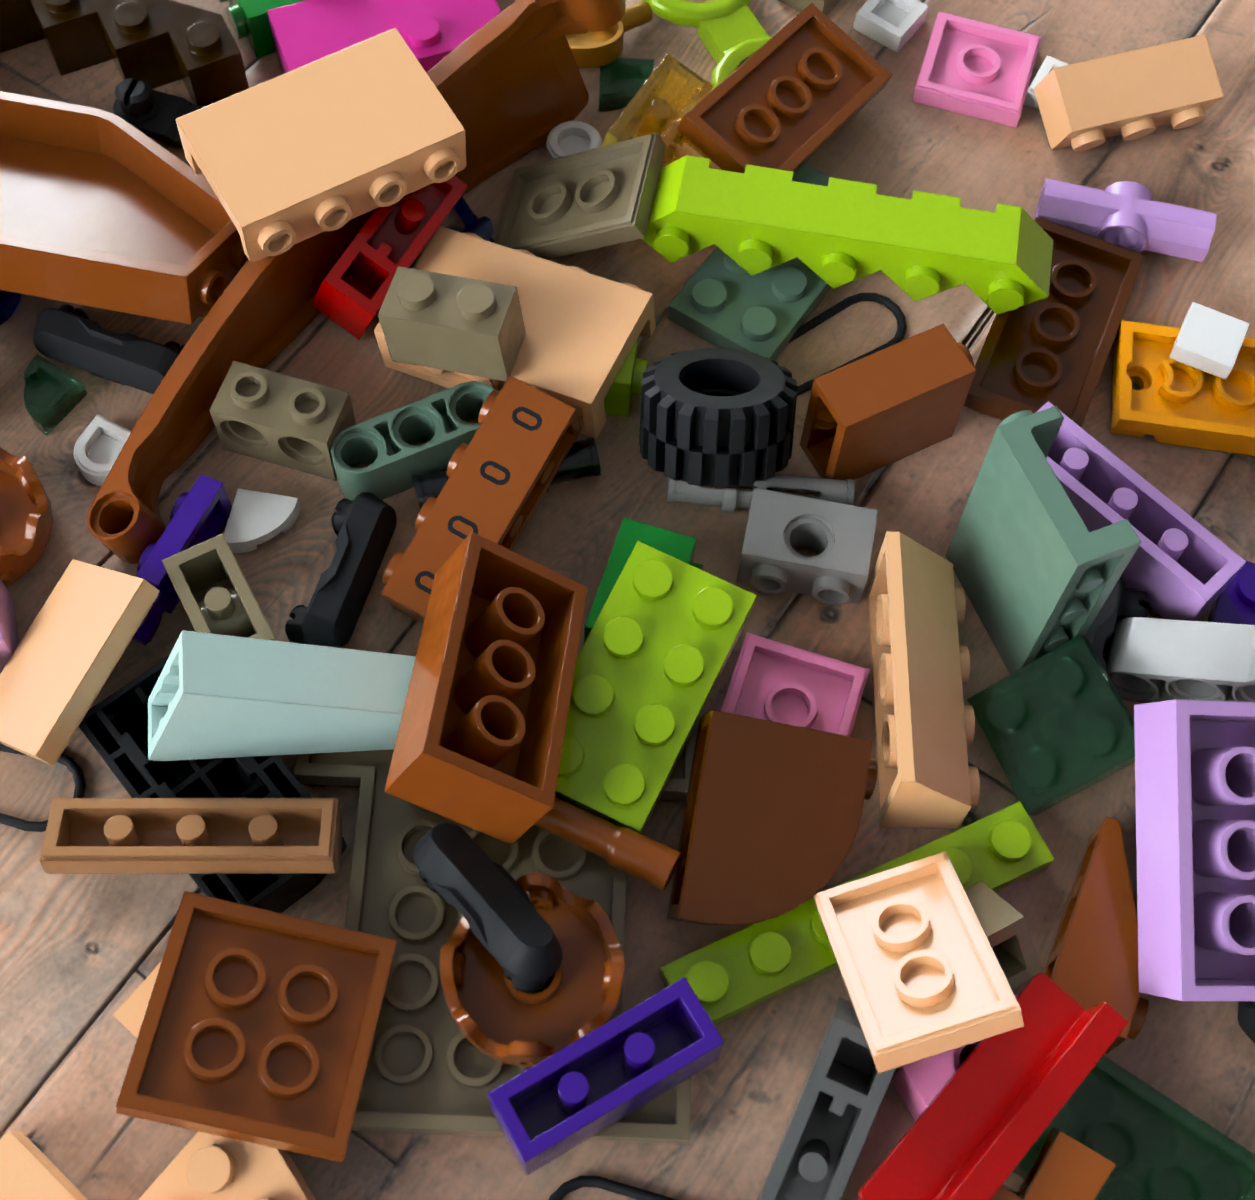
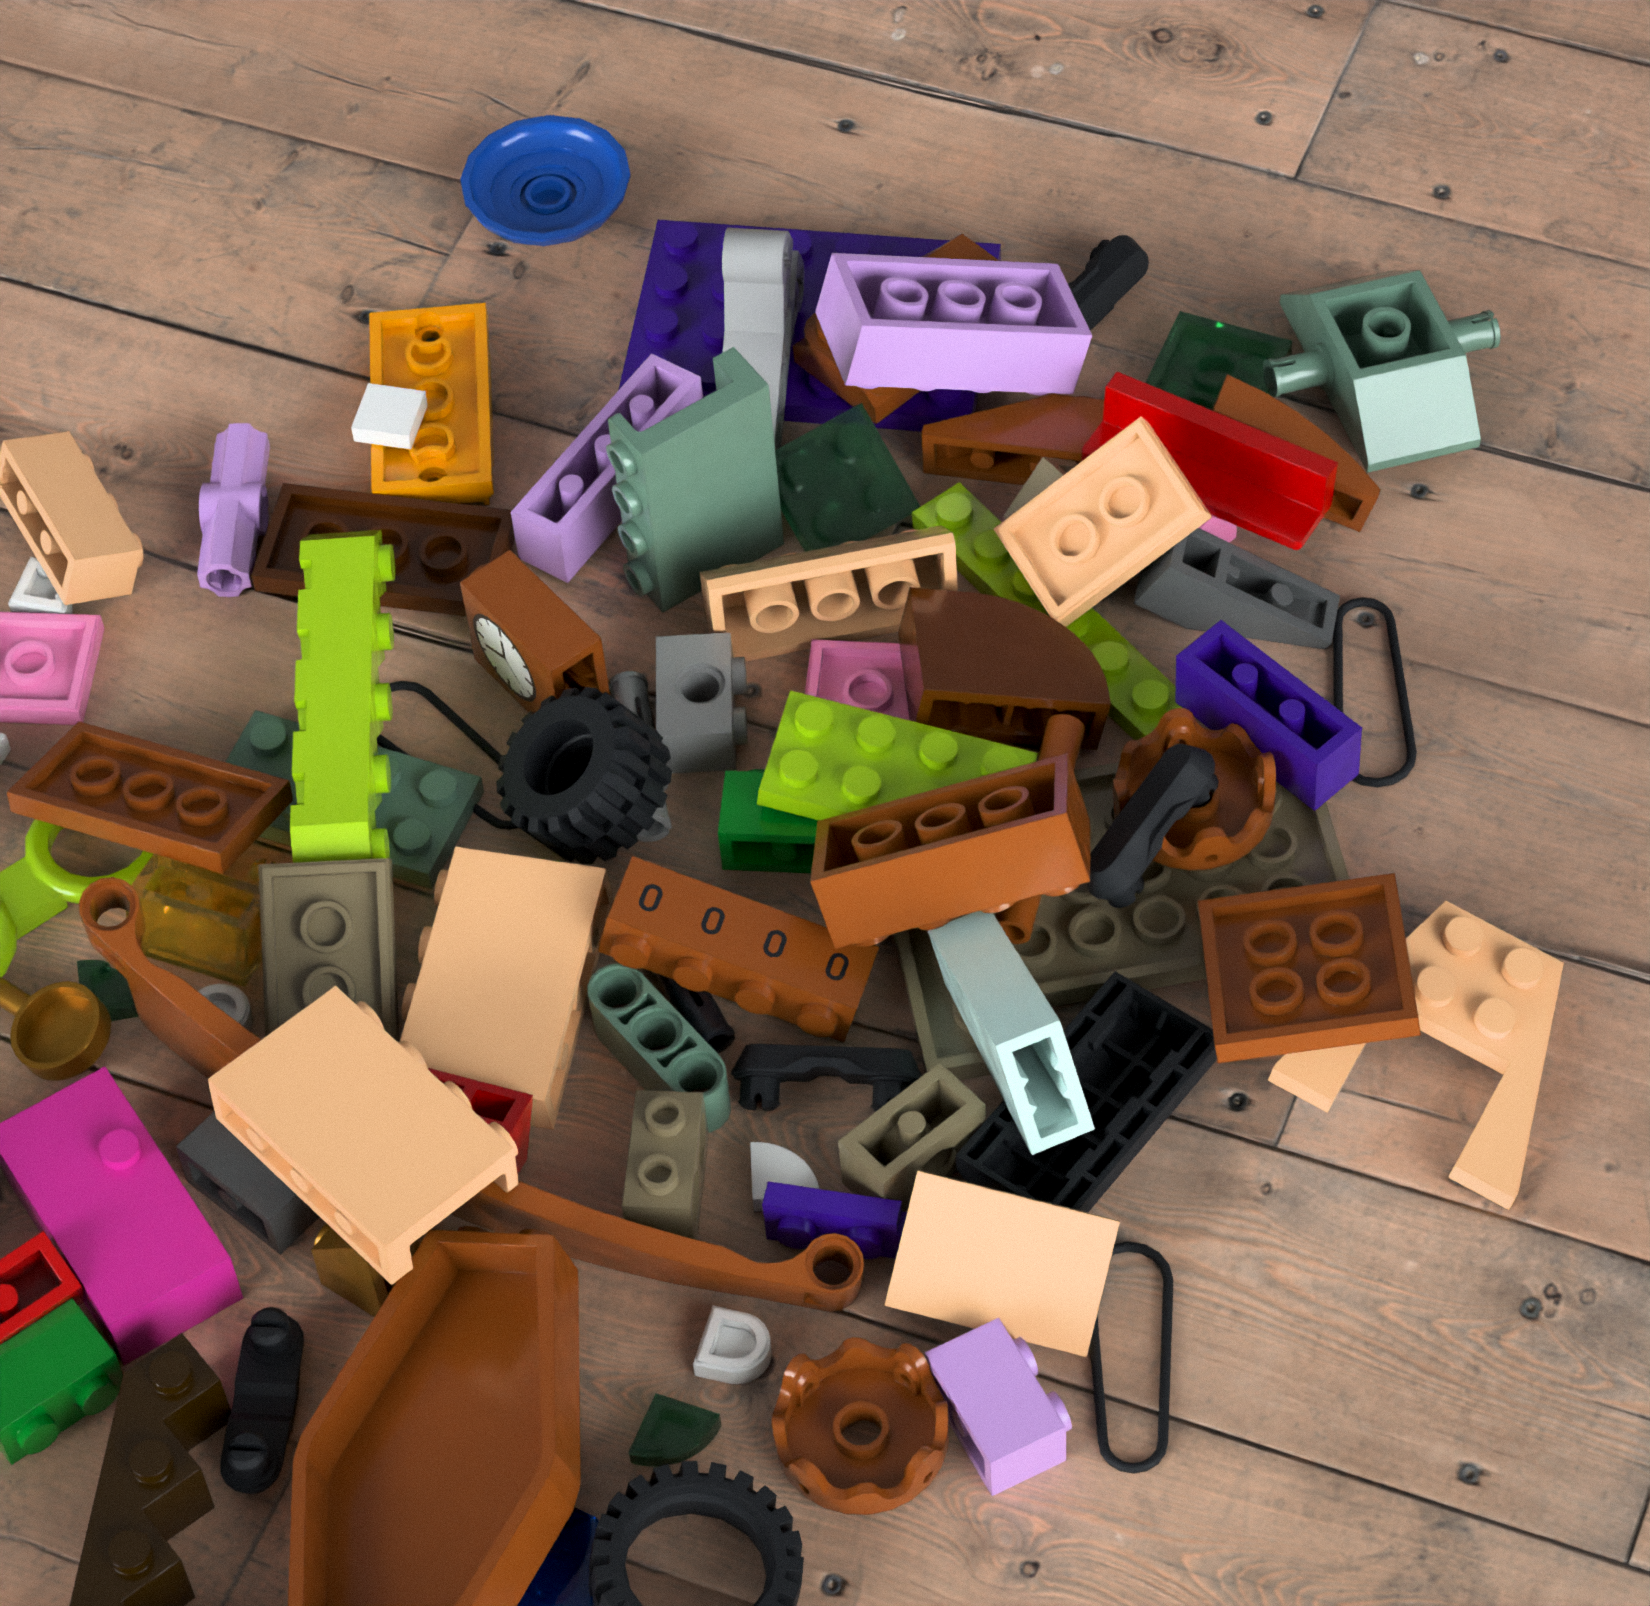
camera: 95 degrees left, 10 degrees down
(83, 343) = (623, 1328): black piece -> none
(193, 836) = (1162, 1065): medium nougat brick -> none
(452, 323) = (547, 992): dark tan brick -> none

